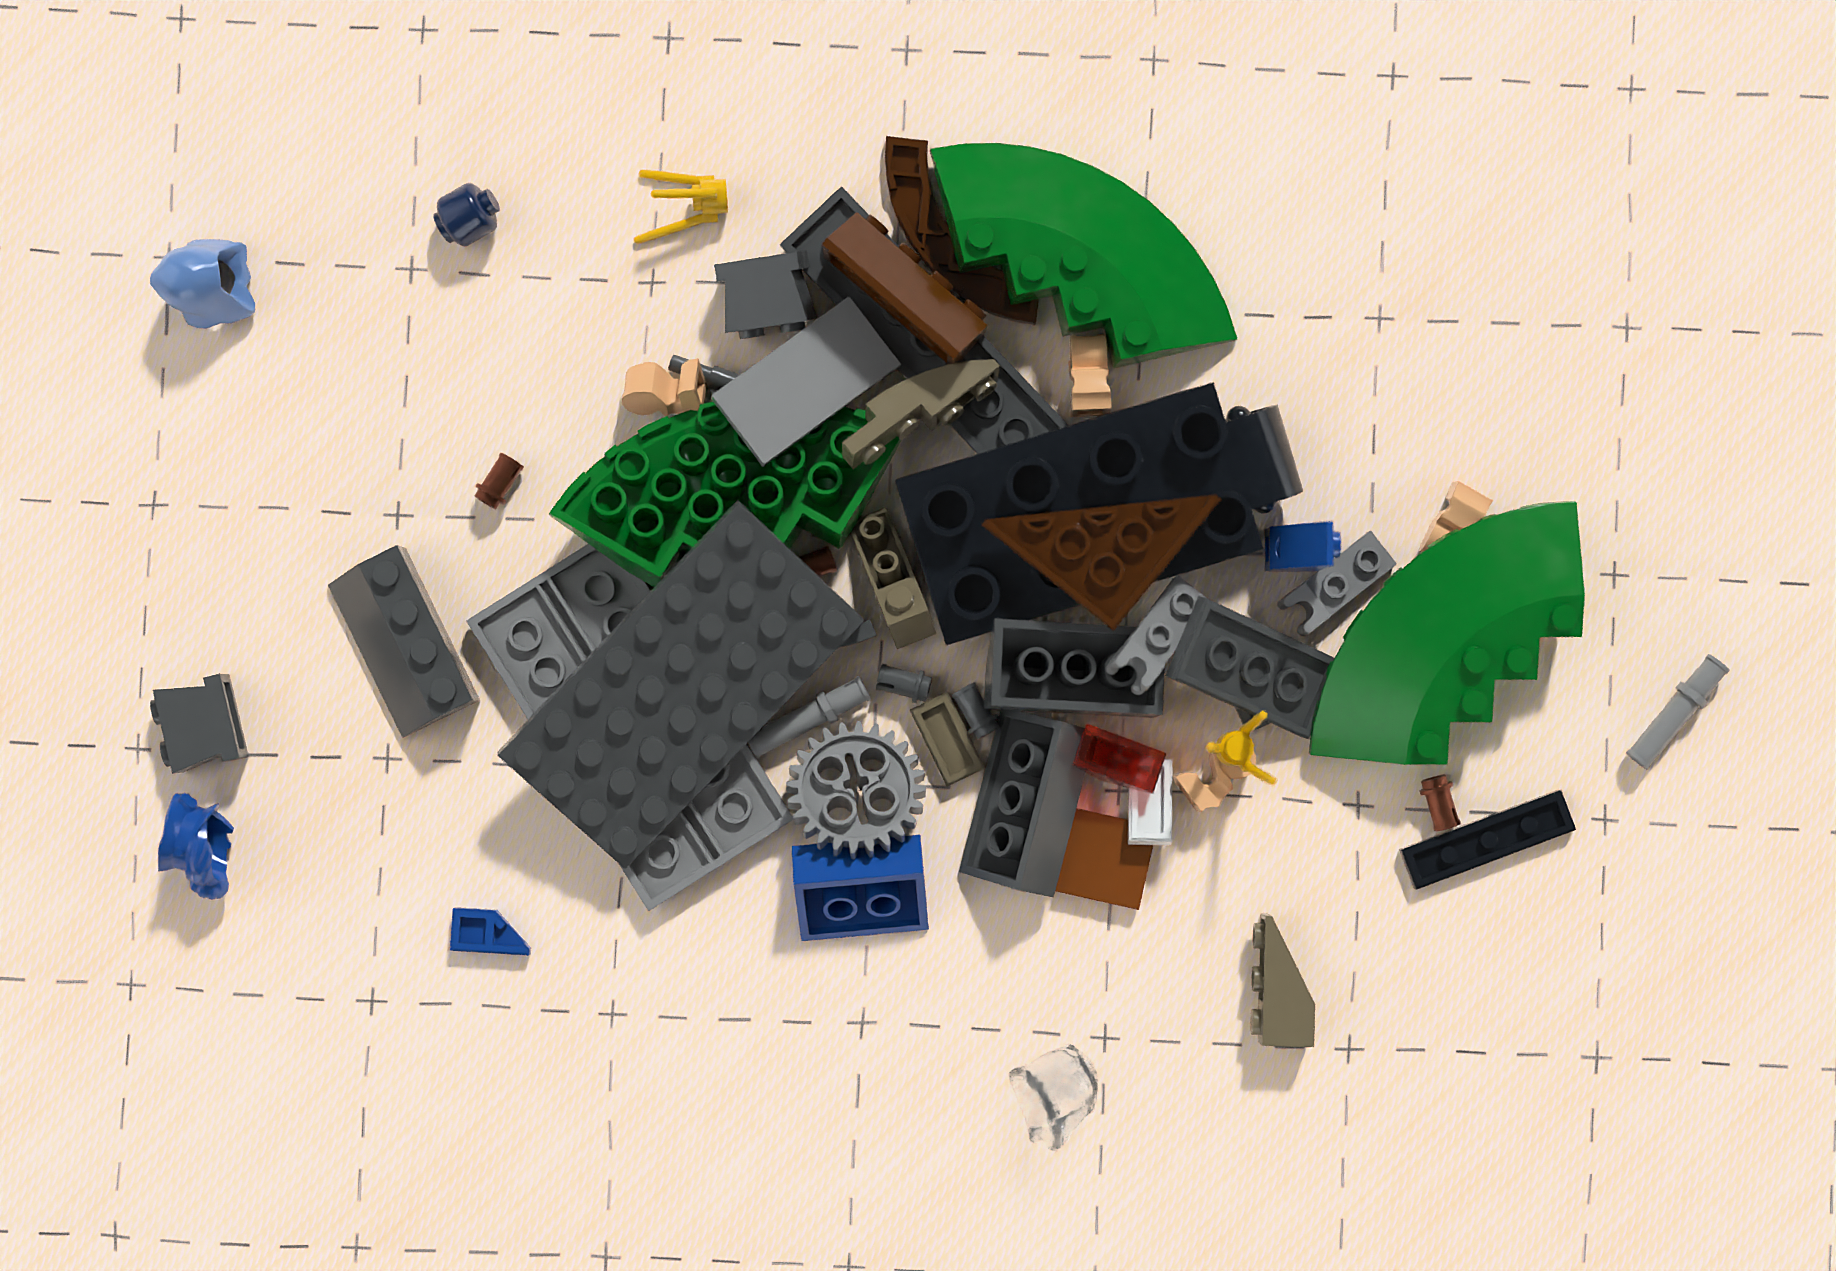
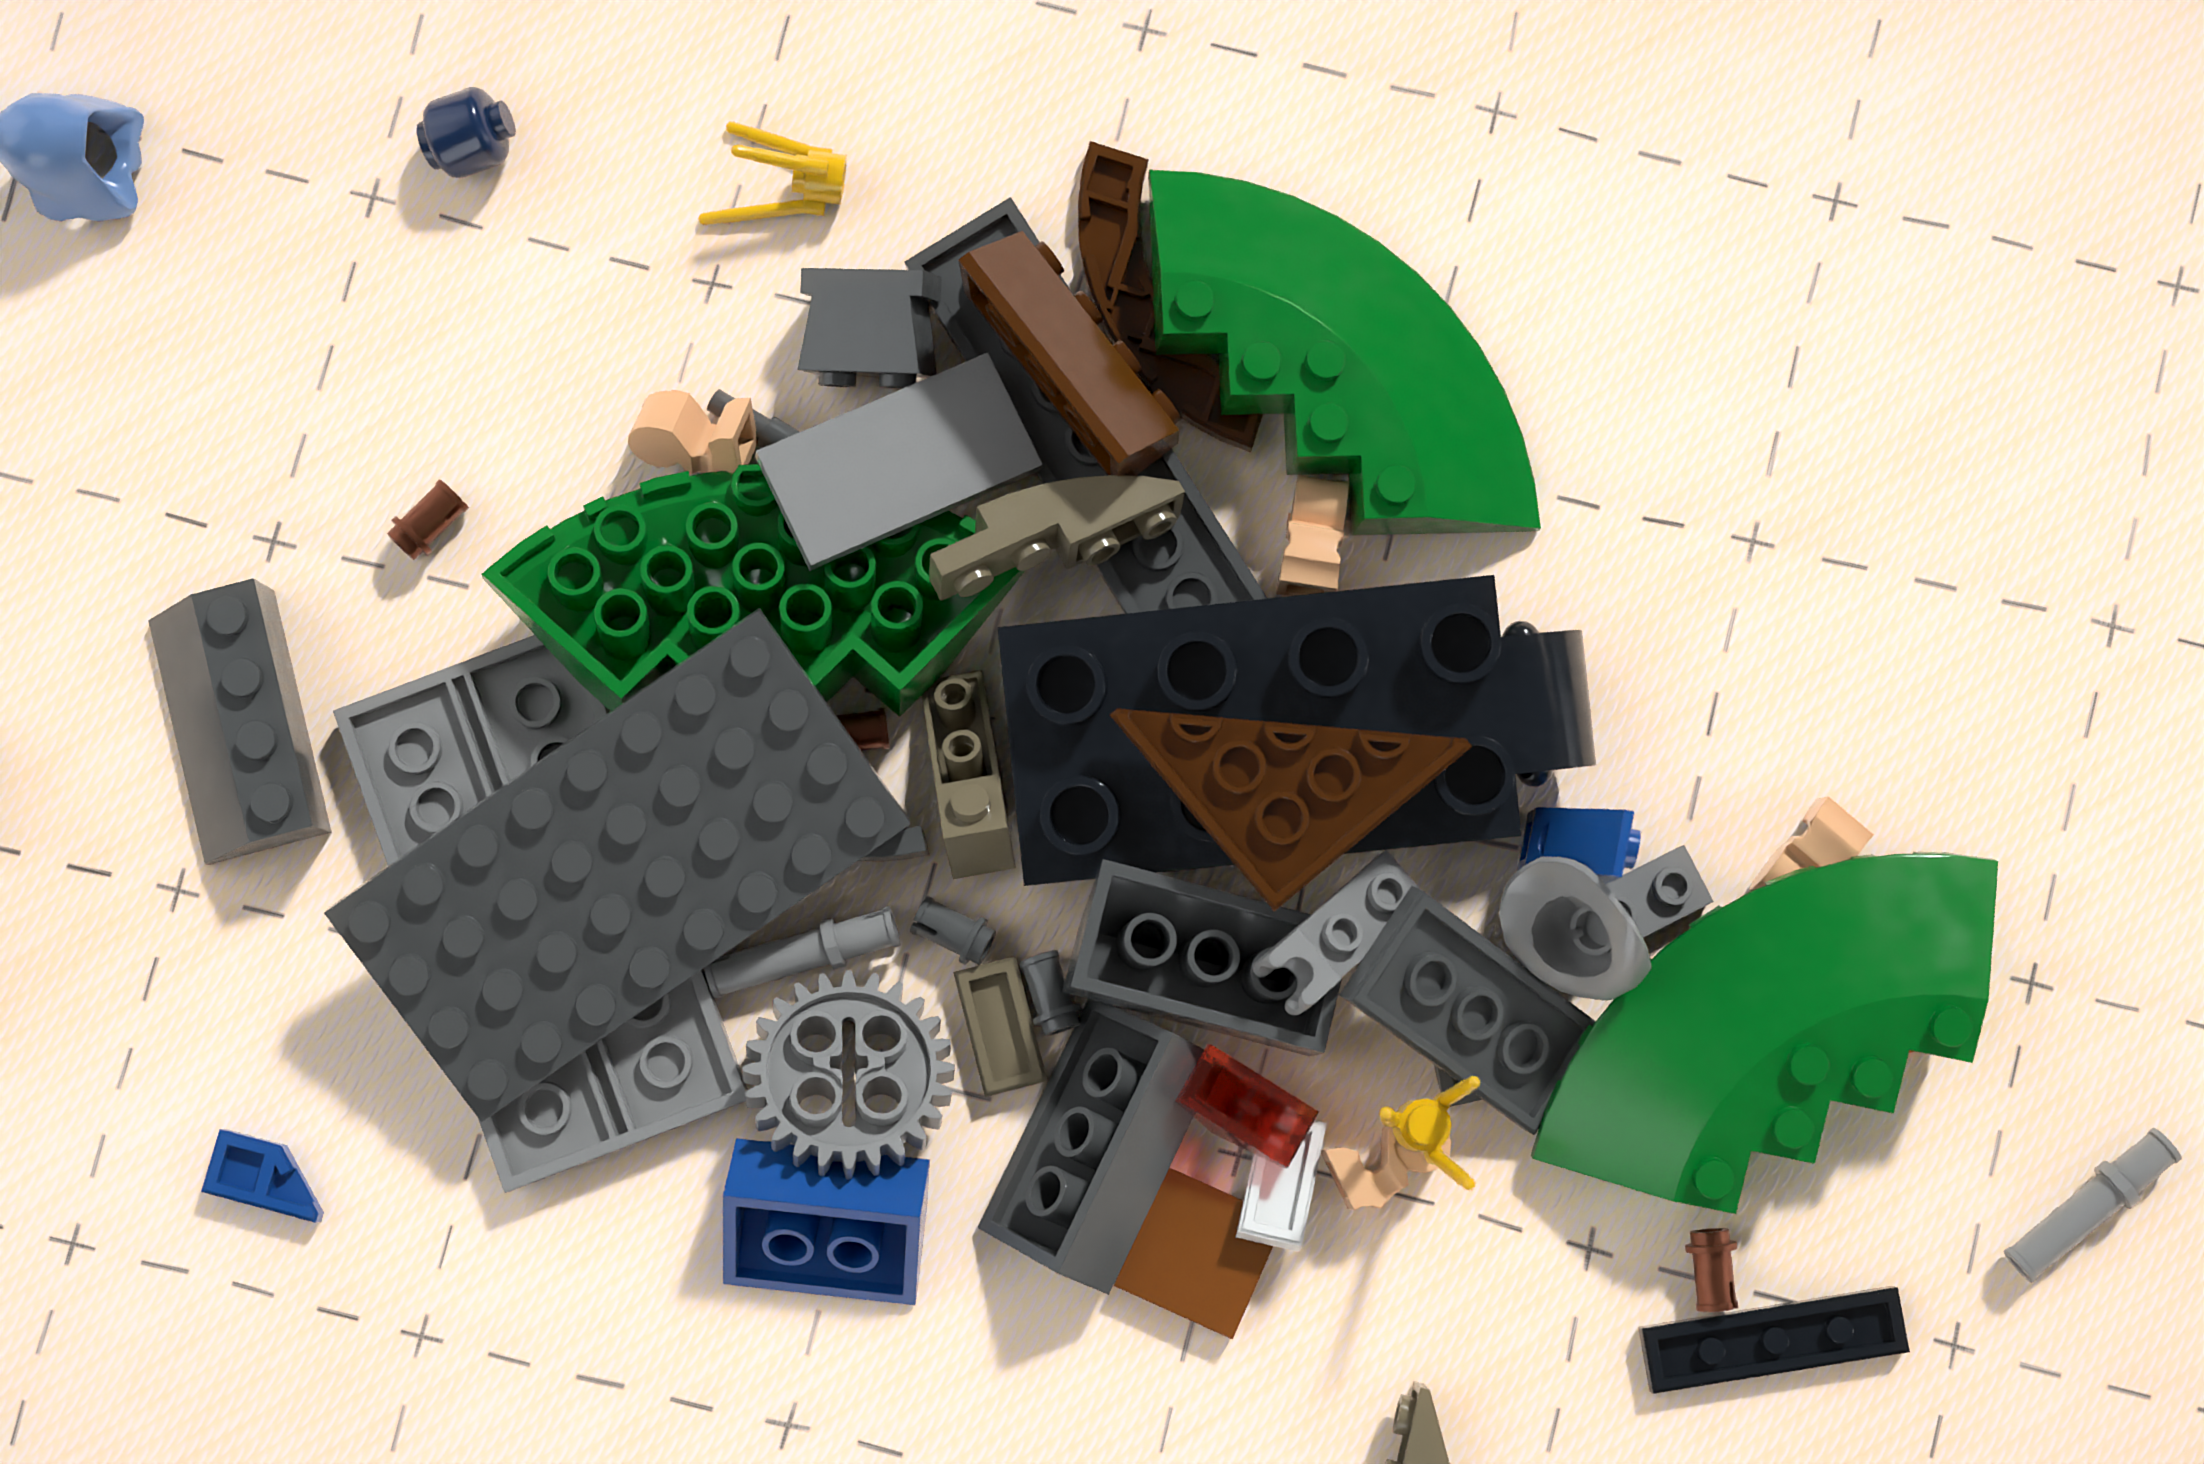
camera: 15 degrees right, 5 degrees down
(1307, 603) = (1572, 930): none -> light grey hat

